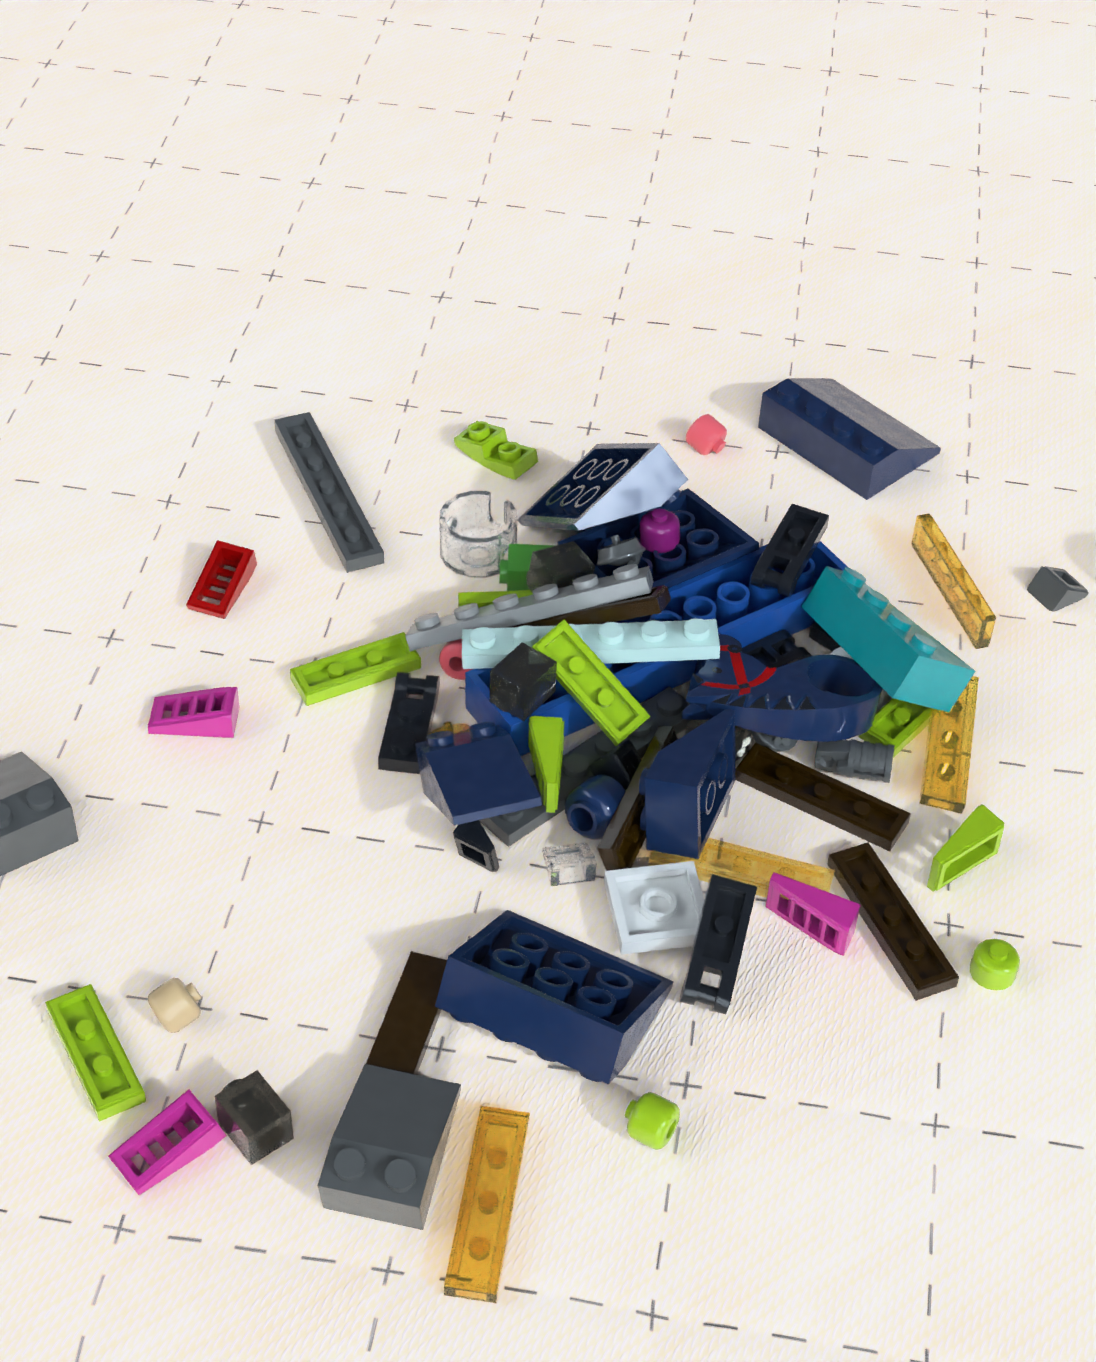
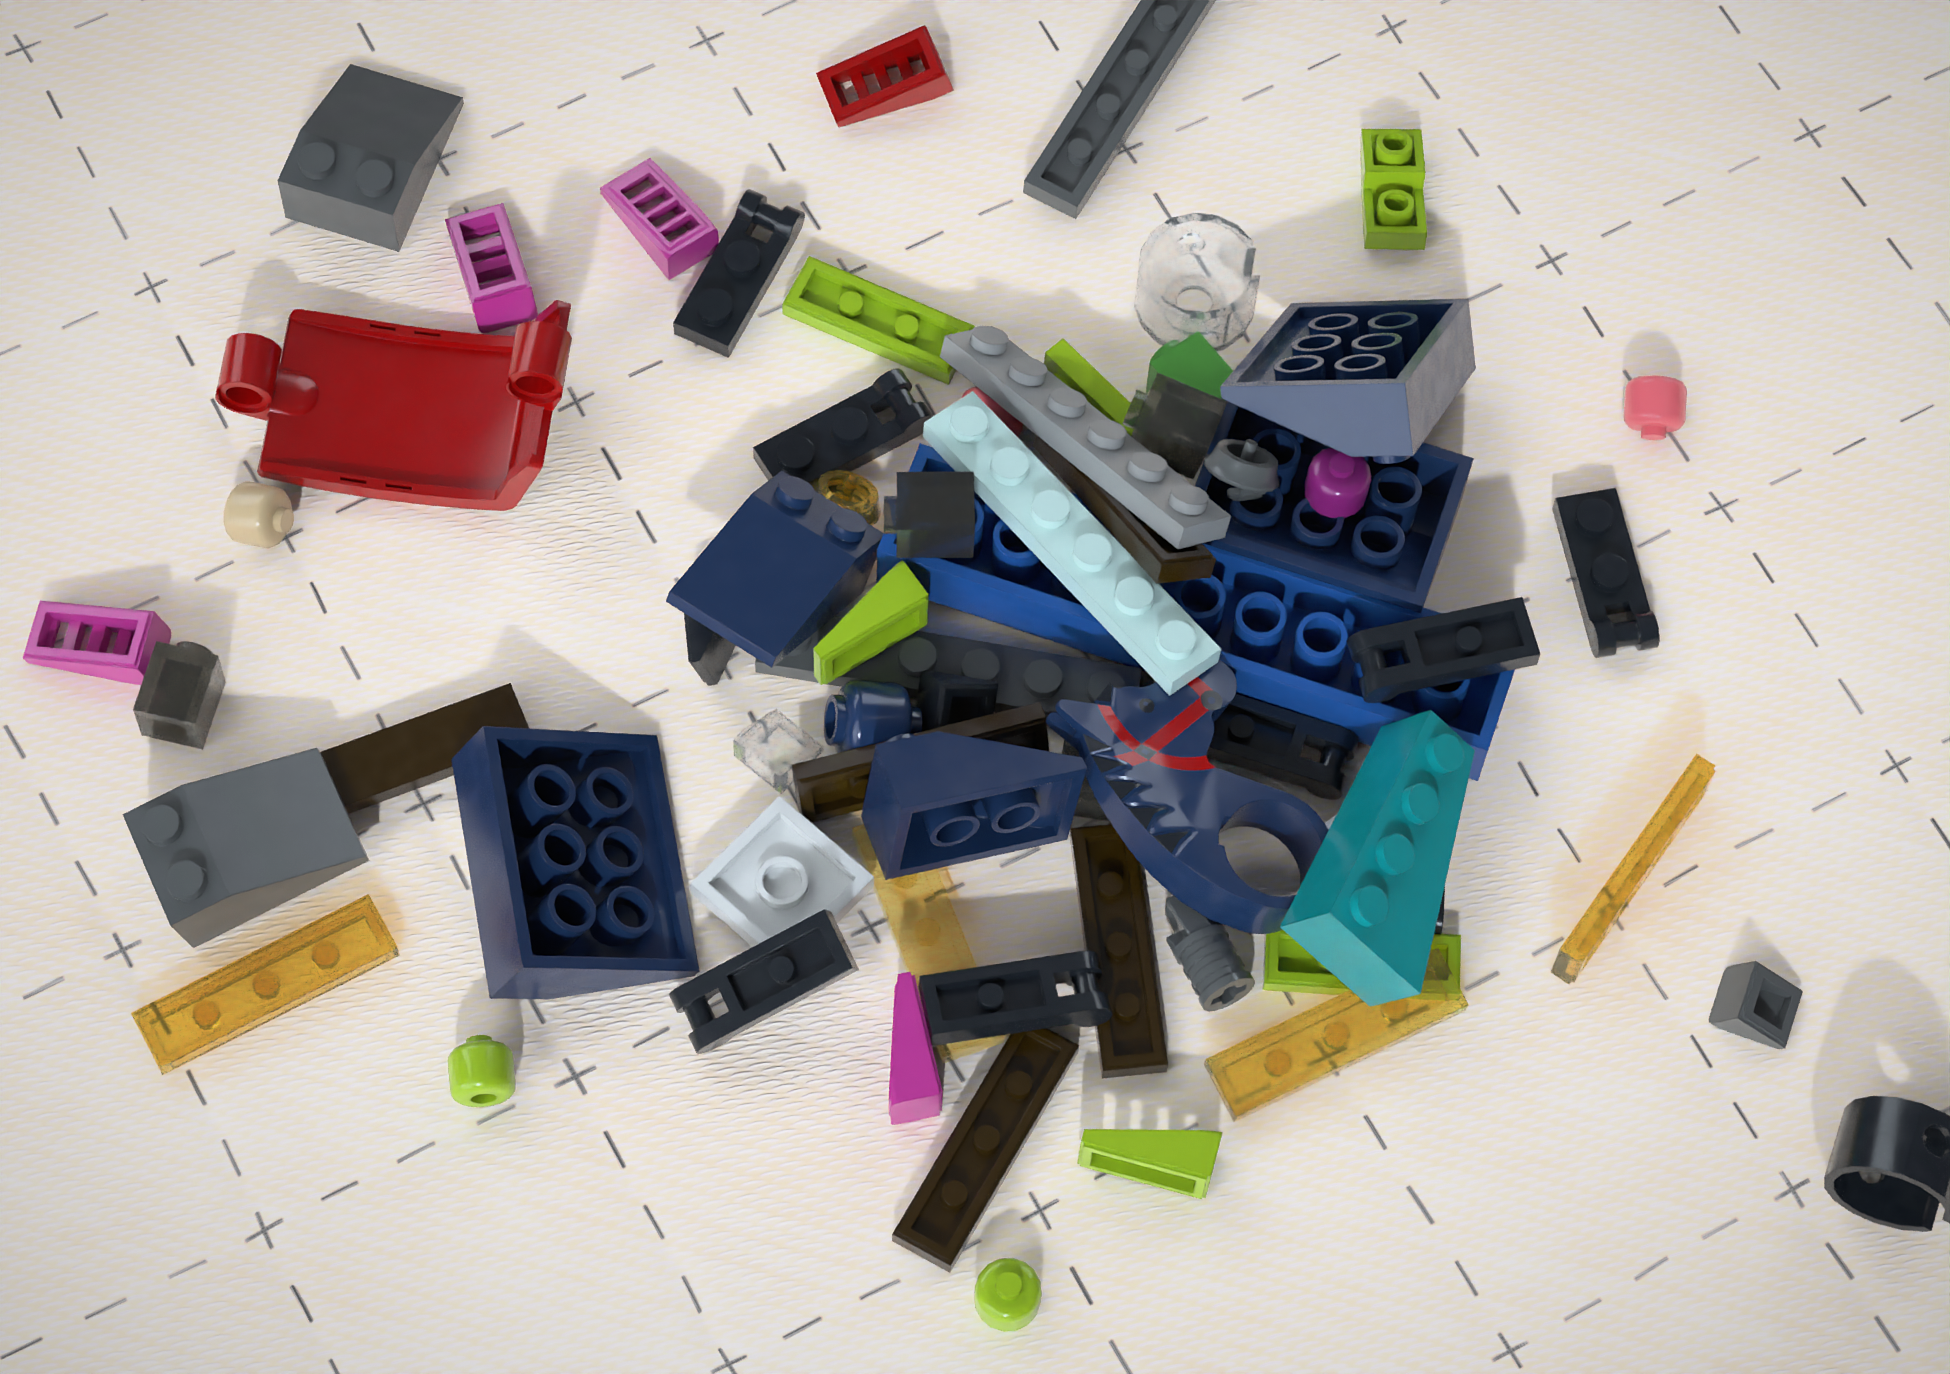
camera: 50 degrees right, 20 degrees up
(95, 1052) = (150, 489): lime tile -> none
(162, 816) = (501, 301): none -> dark pink slope
(200, 881) = (401, 406): none -> red panel
(266, 705) = (738, 274): none -> black plate
(592, 683) = (1006, 585): lime tile -> none
(770, 499) = (1604, 572): none -> black plate
(824, 842) = (1013, 997): none -> black plate
(842, 433) = (1831, 565): dark blue slope -> none

